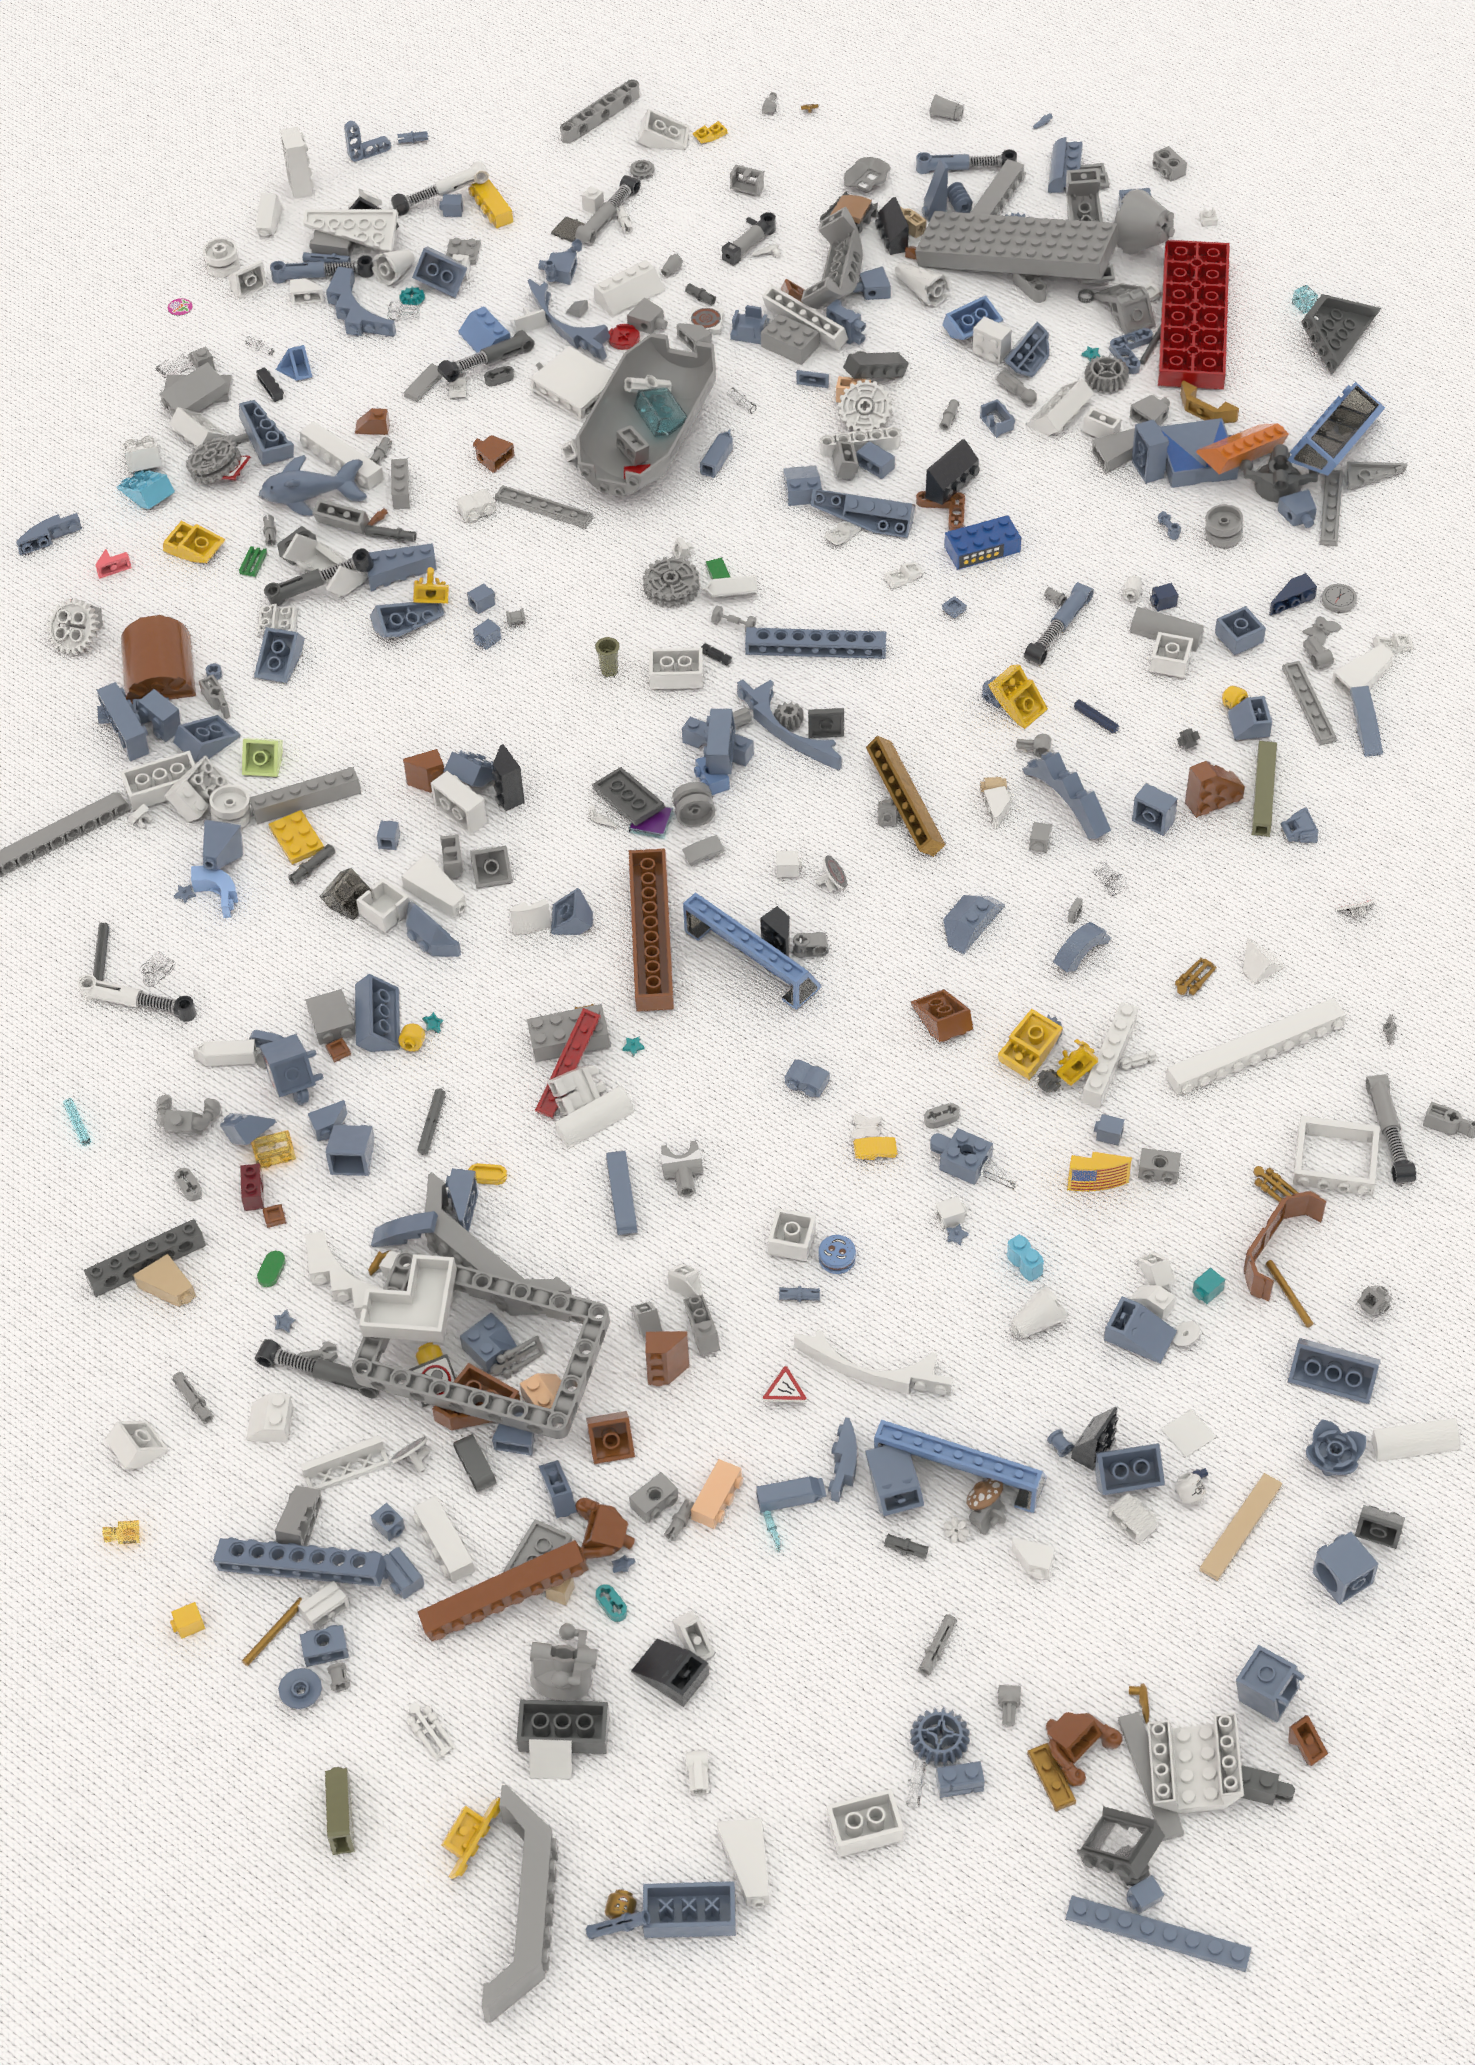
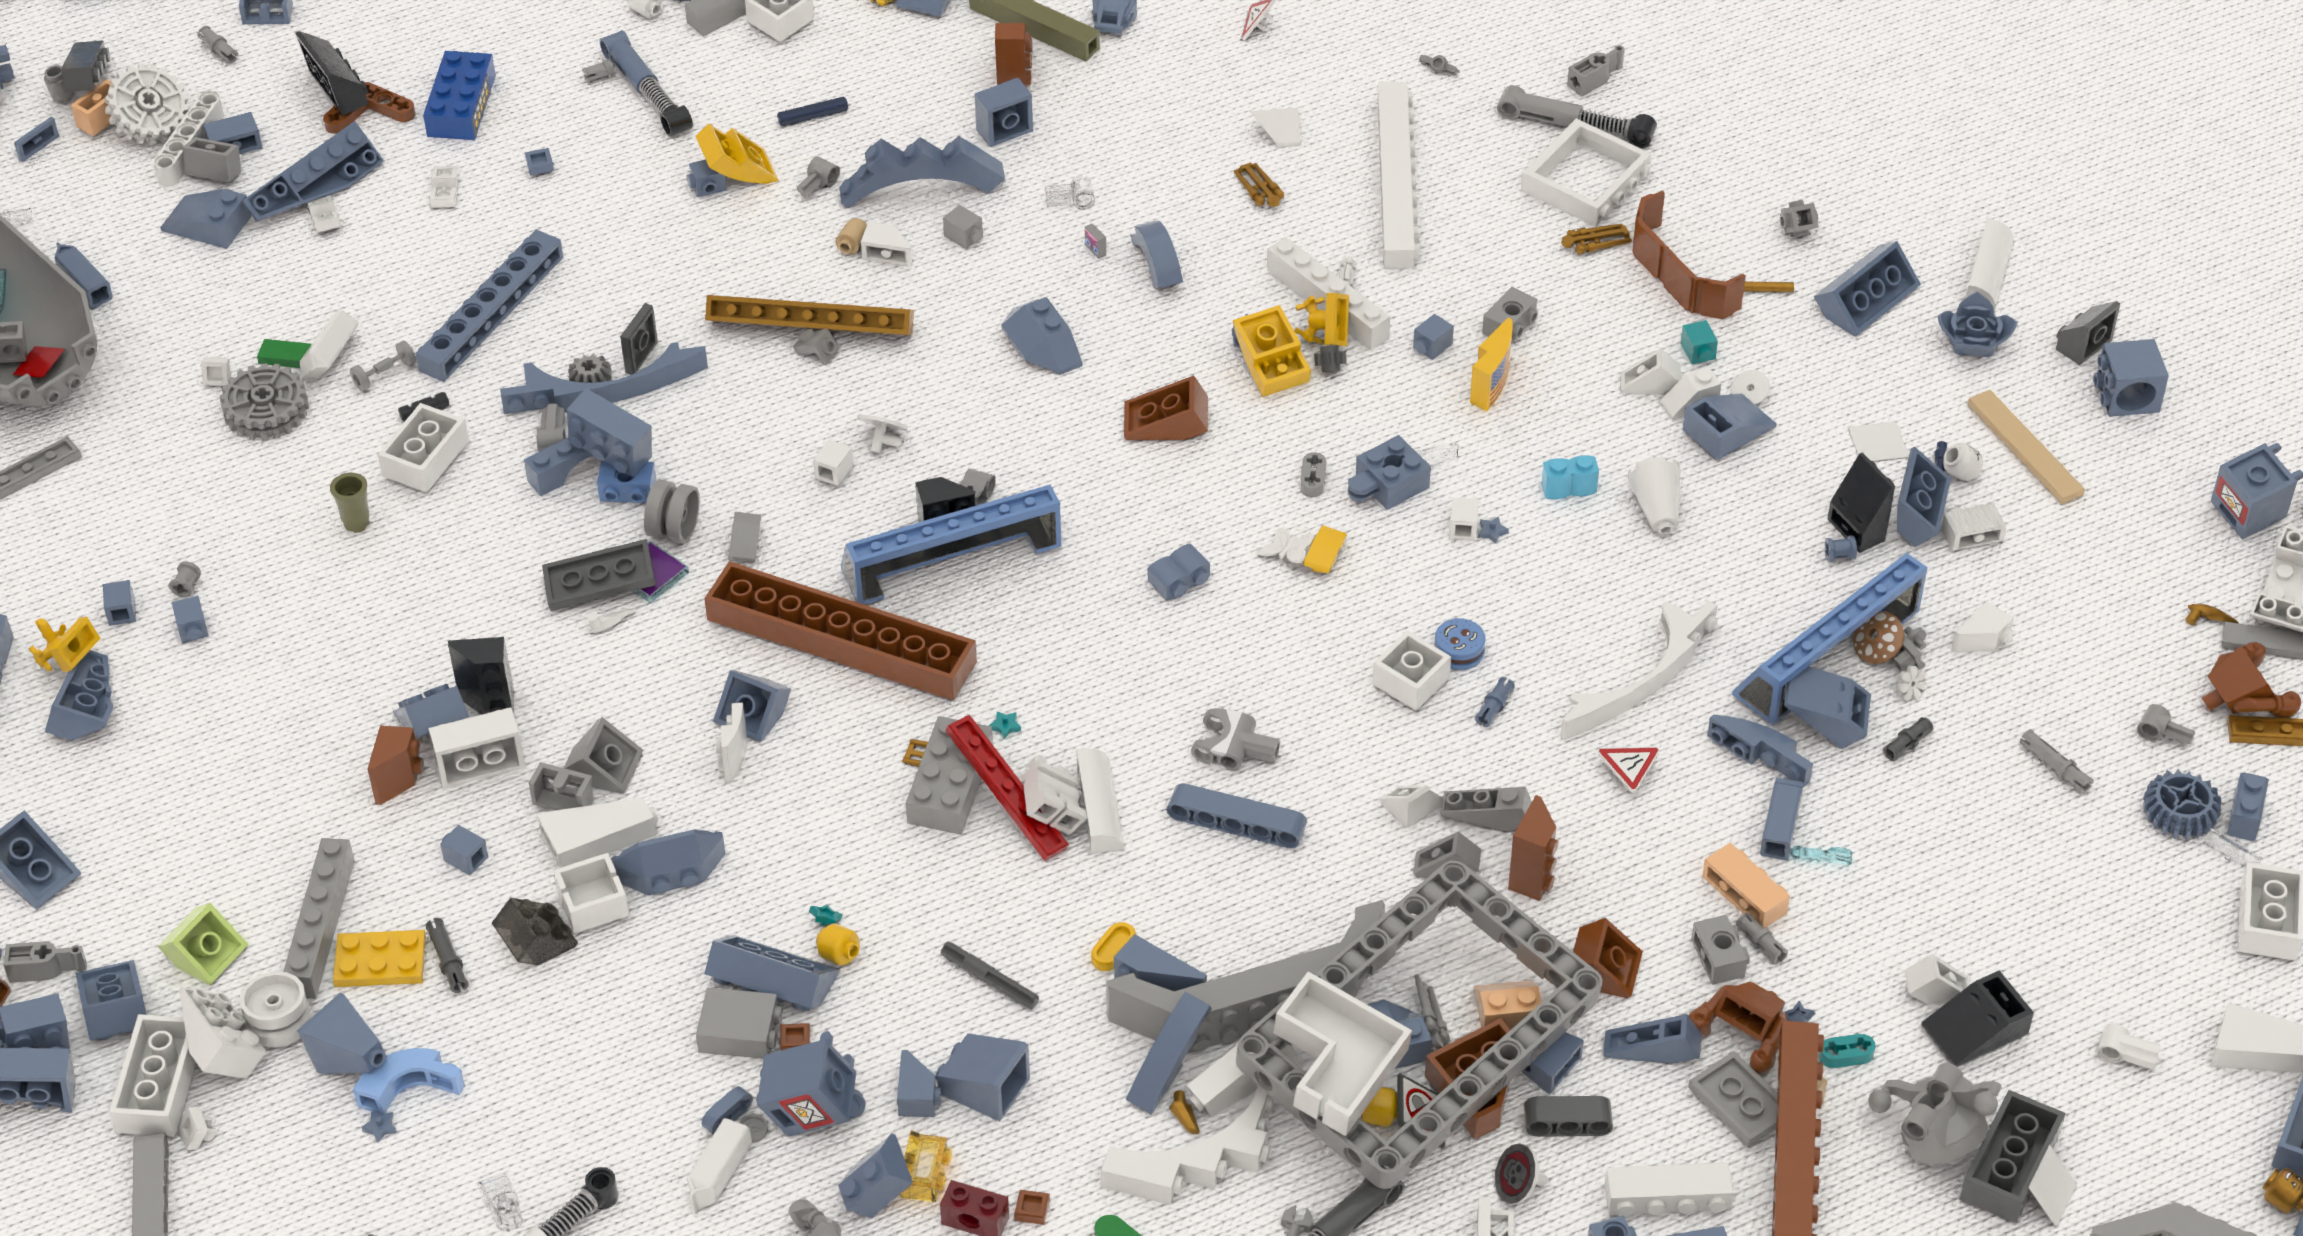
camera: 65 degrees left, 5 degrees down
(1188, 738) = (913, 47): dark grey gear -> none

